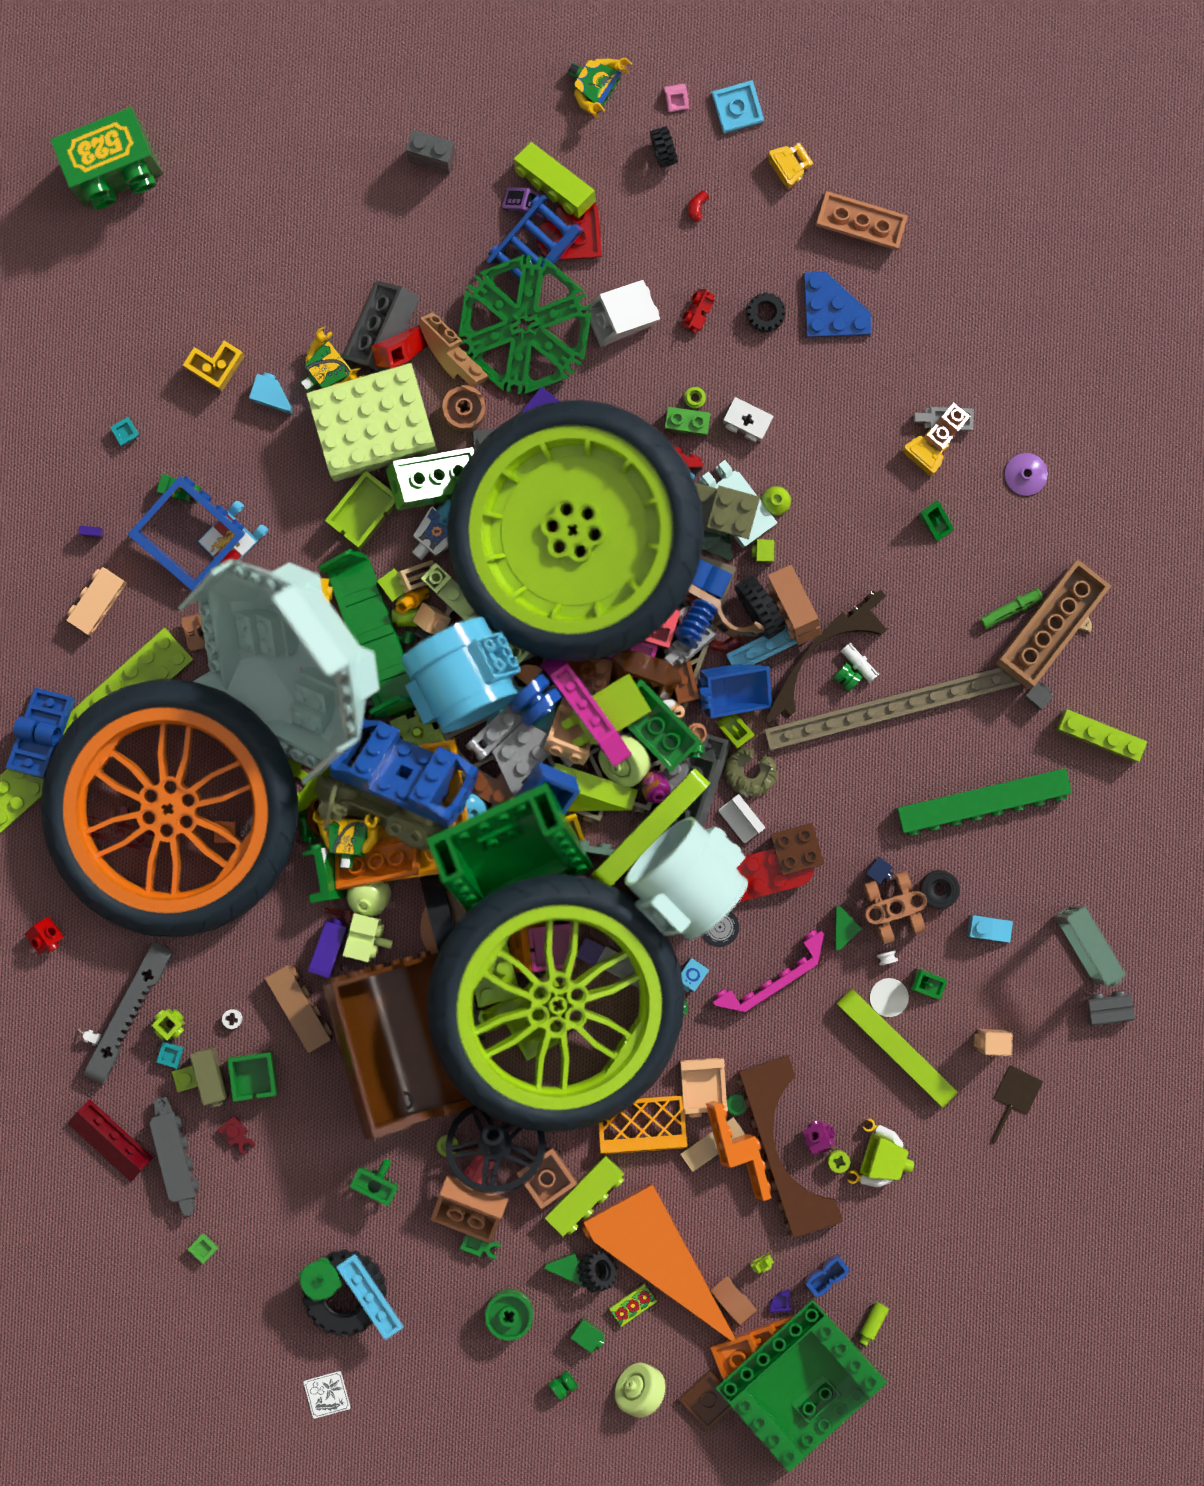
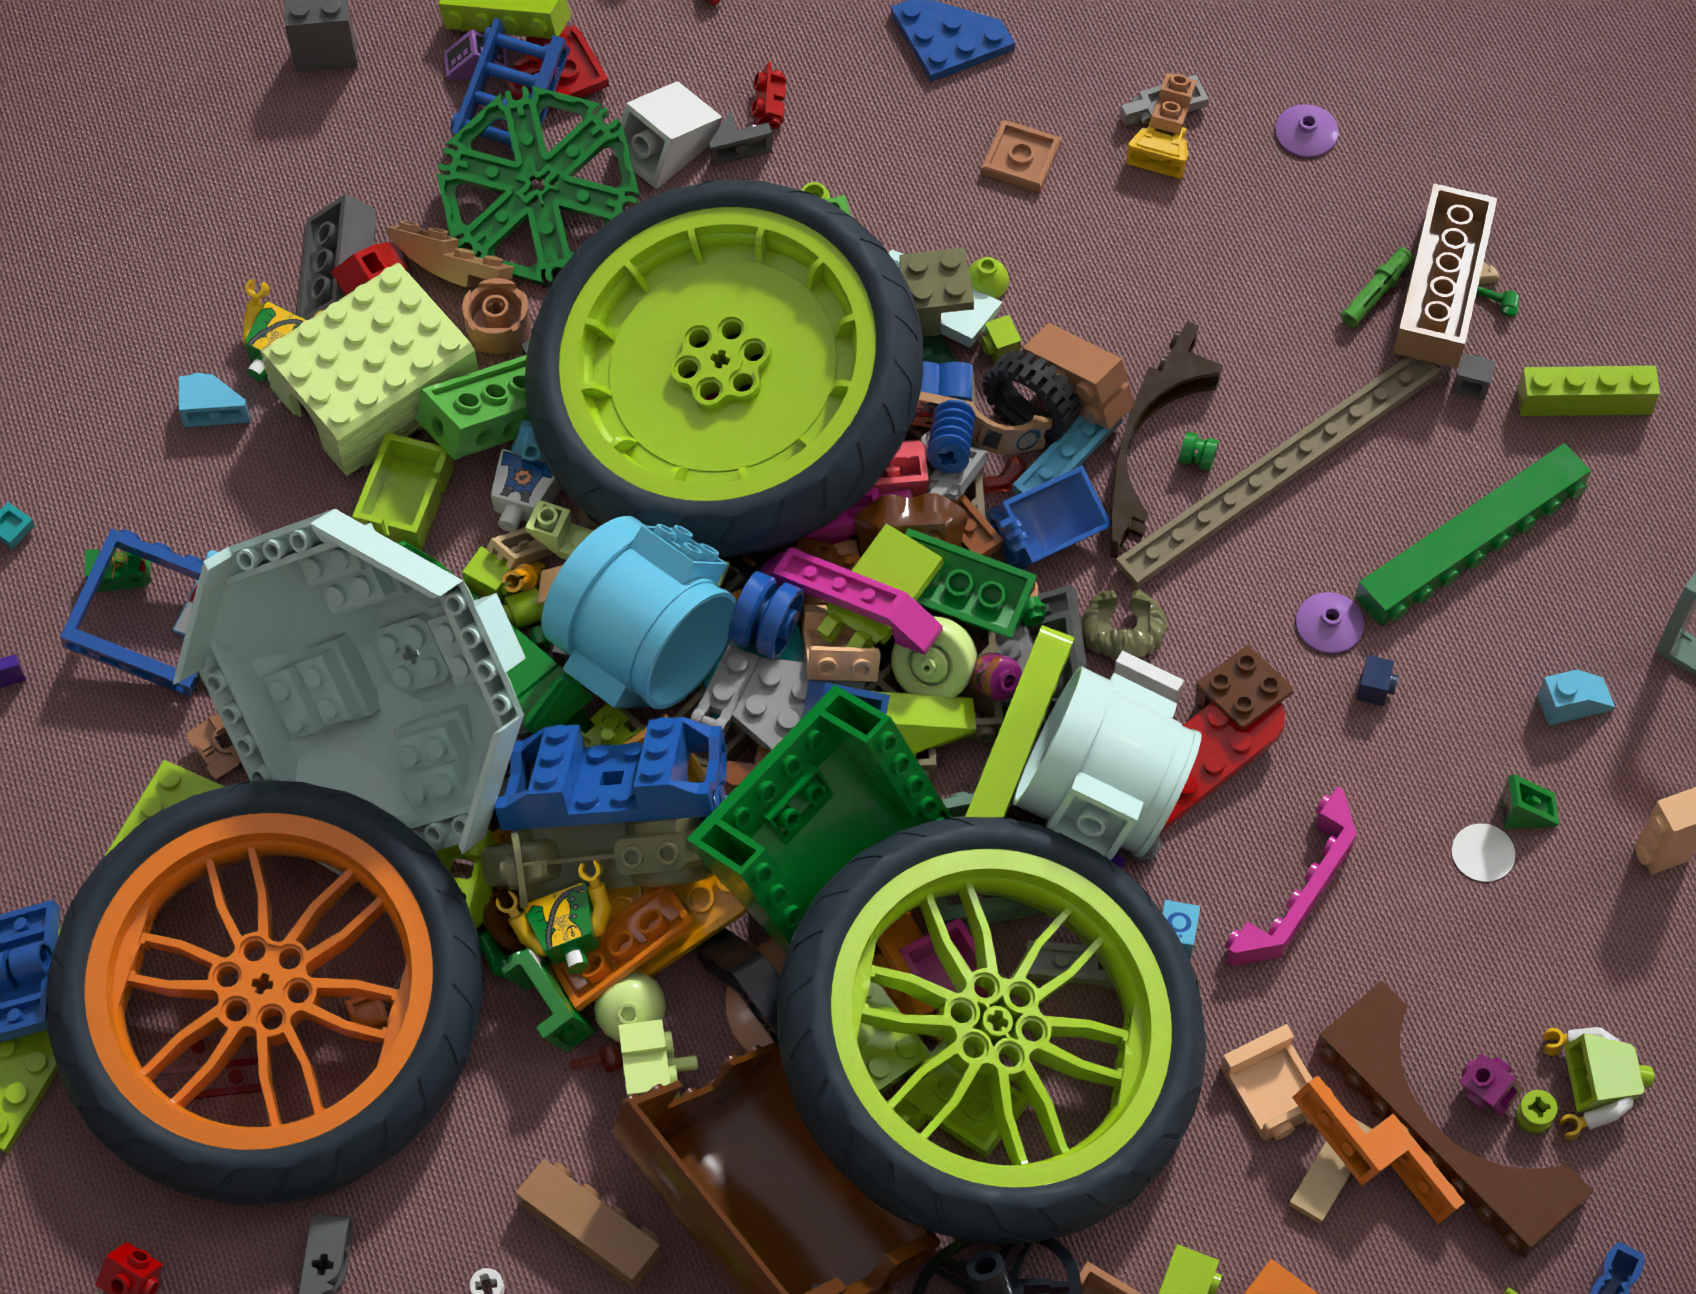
camera: 20 degrees left, 25 degrees down
(96, 601) = (45, 761): light nougat brick -> none
(215, 370) = (114, 396): yellow brick -> none
(328, 948) = (598, 1112): dark purple slope -> none
(590, 951) = (1008, 956): dark purple plate -> none
(647, 1143) = (1231, 1205): light orange fence -> none
(658, 337) = (734, 144): none -> dark grey slope
(724, 931) = (1185, 854): sticker -> none
(735, 730) = (1082, 572): lime slope -> none
(736, 1104) = (1342, 1091): green tile -> none
(756, 322) = (861, 53): black tyre -> none
(759, 418) = (899, 194): white brick -> none
(838, 419) = (1021, 155): none -> nougat tile
(844, 928) = (1366, 774): green slope -> none
(859, 662) = (1205, 428): white pin -> none
(861, 819) = (1328, 635): none -> medium lavender dish
(885, 916) = (1428, 689): nougat piece -> none
(887, 957) = (1451, 793): white bush -> none
(897, 1047) = (1535, 912): lime beam -> none
(936, 520) = (1215, 218): green slope -> none
(948, 880) = (1480, 655): black tyre -> none
(1087, 652) = (1508, 300): none -> green hand

